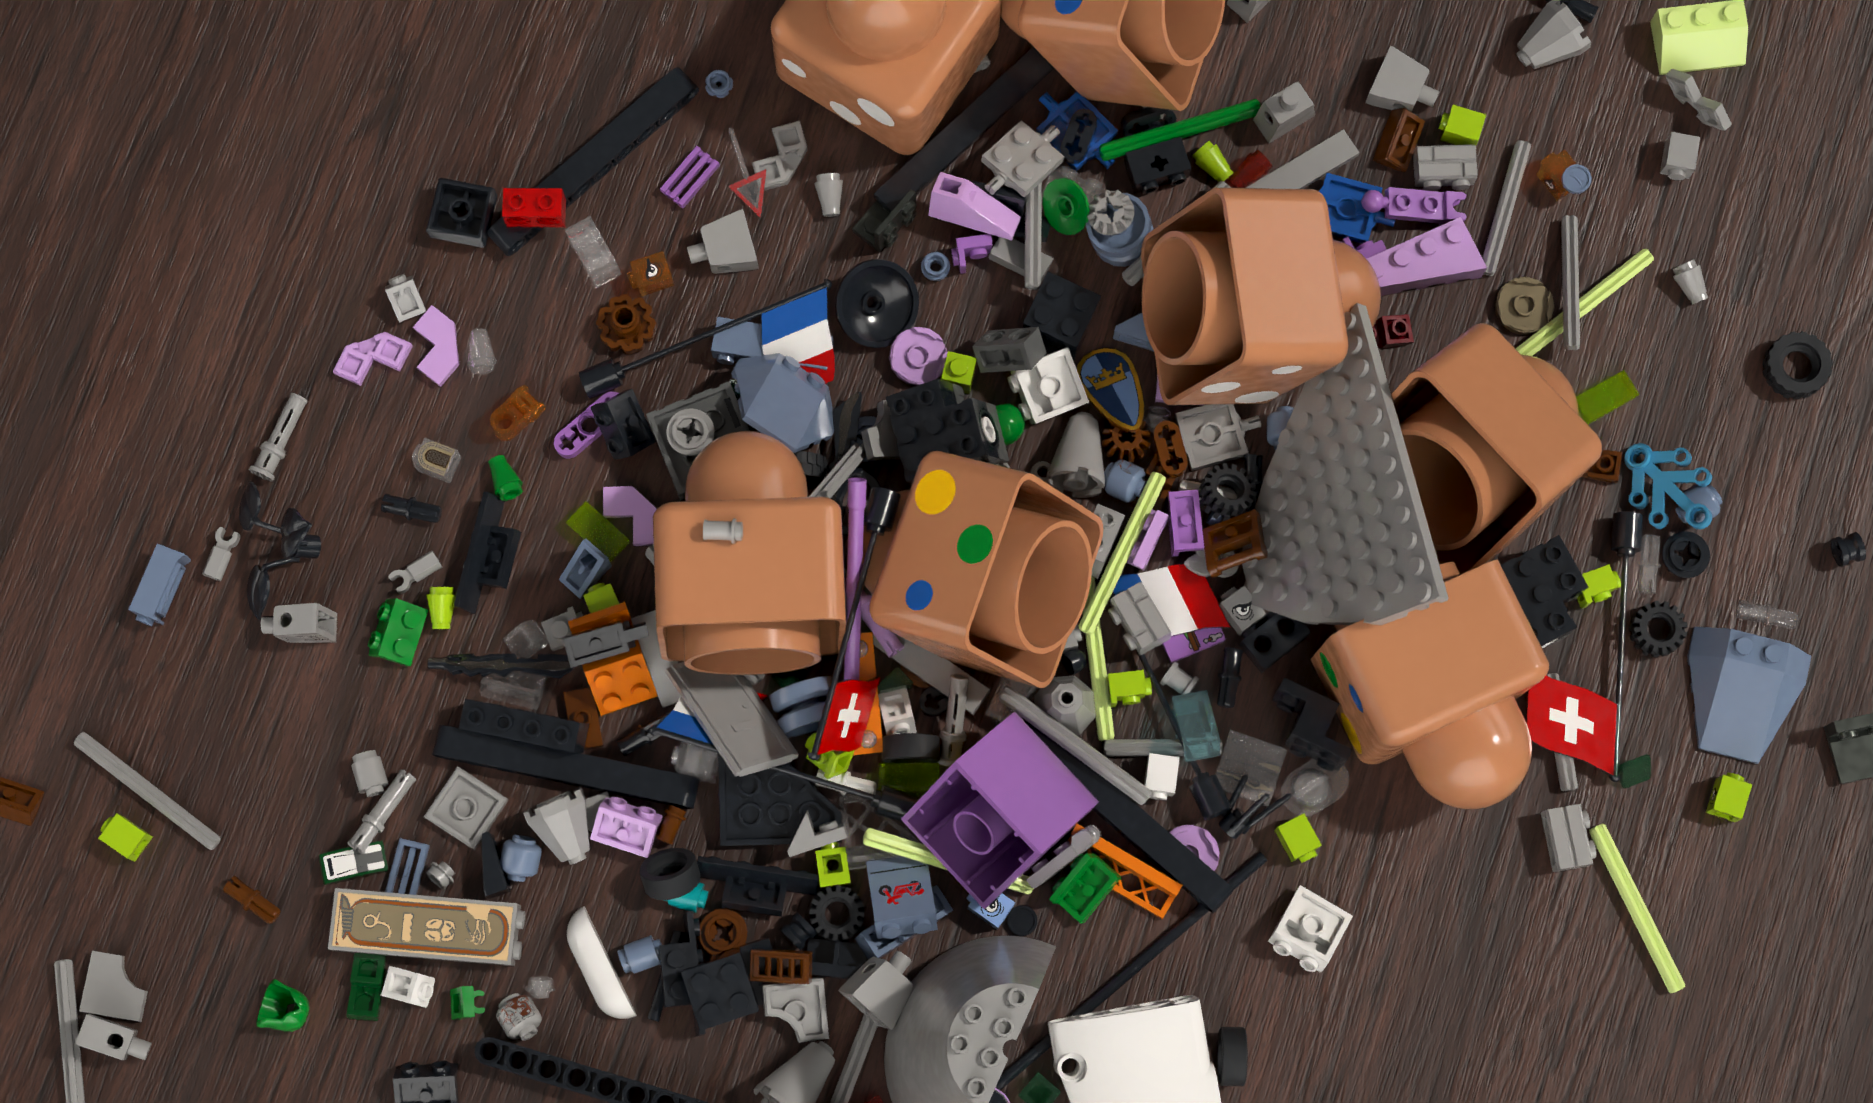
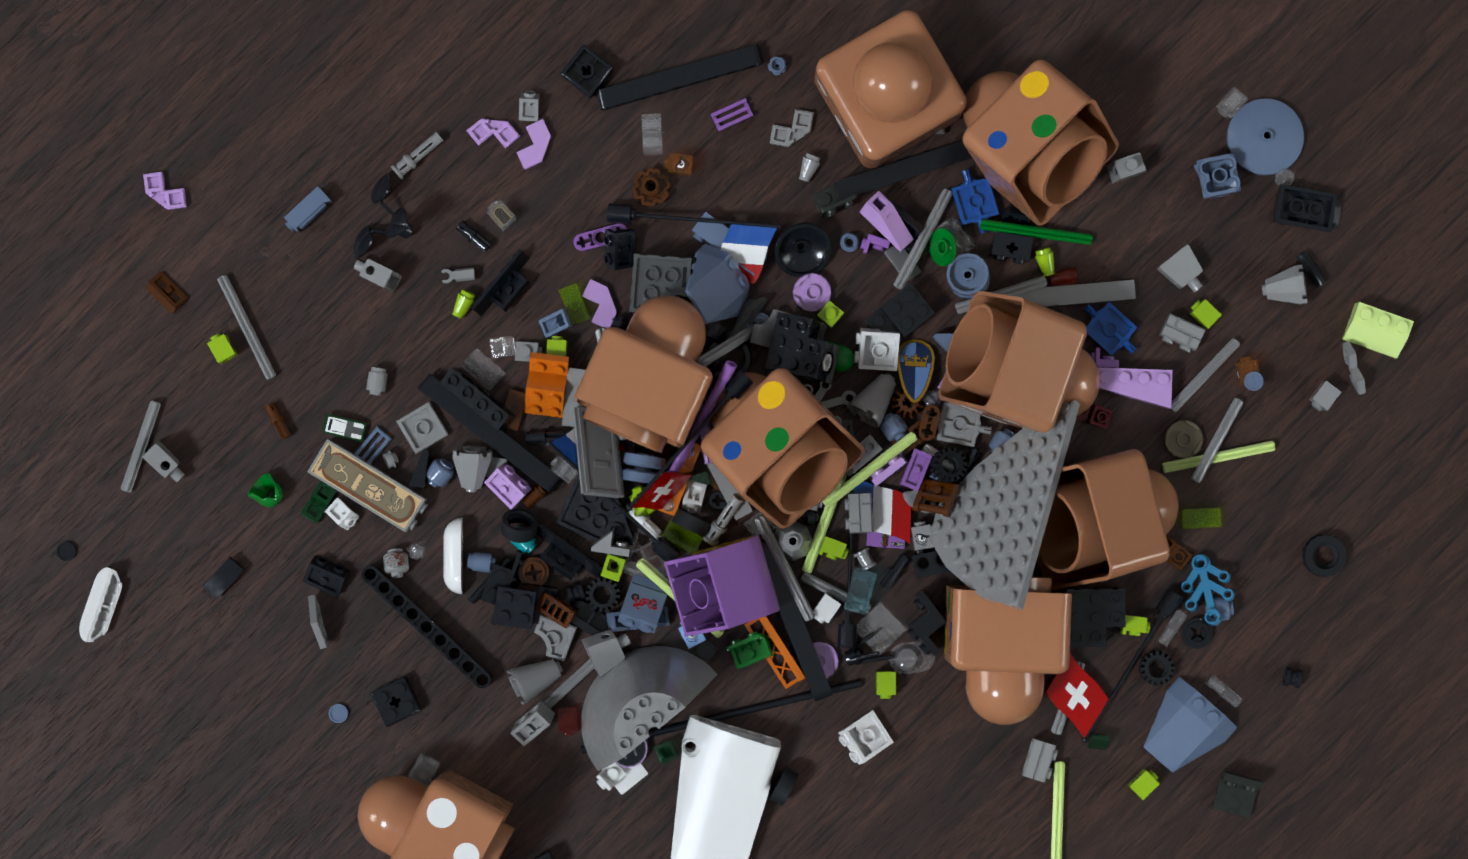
camera: 30 degrees right, 10 degrees up
(110, 991) = (174, 431): light grey tile -> none
(220, 555) = (350, 209): light grey bar -> none
(381, 812) = (367, 410): light grey pin -> none
(397, 631) = (431, 305): green bracket -> none
(463, 1002) = (369, 538): green tile -> none
(480, 353) = (557, 163): clear cone -> none
(503, 664) = (482, 357): black sword -> none
(505, 480) = (535, 245): green cone -> none
(517, 412) = (562, 209): clear orange piece -> none
(534, 207) = (629, 93): red brick -> none
(603, 641) = (545, 375): black hinge -> none
(682, 421) = (653, 269): light grey gear -> none
(723, 530) = (638, 361): light grey pin -> none
(726, 245) = (732, 168): light grey torso -> none
(751, 187) = (763, 139): clear piece -> none
(1009, 349) = (865, 318): dark grey brick -> none
(1022, 159) = (932, 205): light grey plate -> none
(1064, 855) = (749, 627): light grey hinge -> none
(1085, 138) = (976, 210): black beam -> none
(1122, 217) = (970, 273): light grey gear -> none
(1288, 110) = (1103, 252): light grey torso -> none
(1399, 139) = (1164, 301): reddish brown slope -> none
(1415, 204) = (1150, 348): medium lavender plate -> none
(1691, 281) = (1289, 474): light grey cone -> none

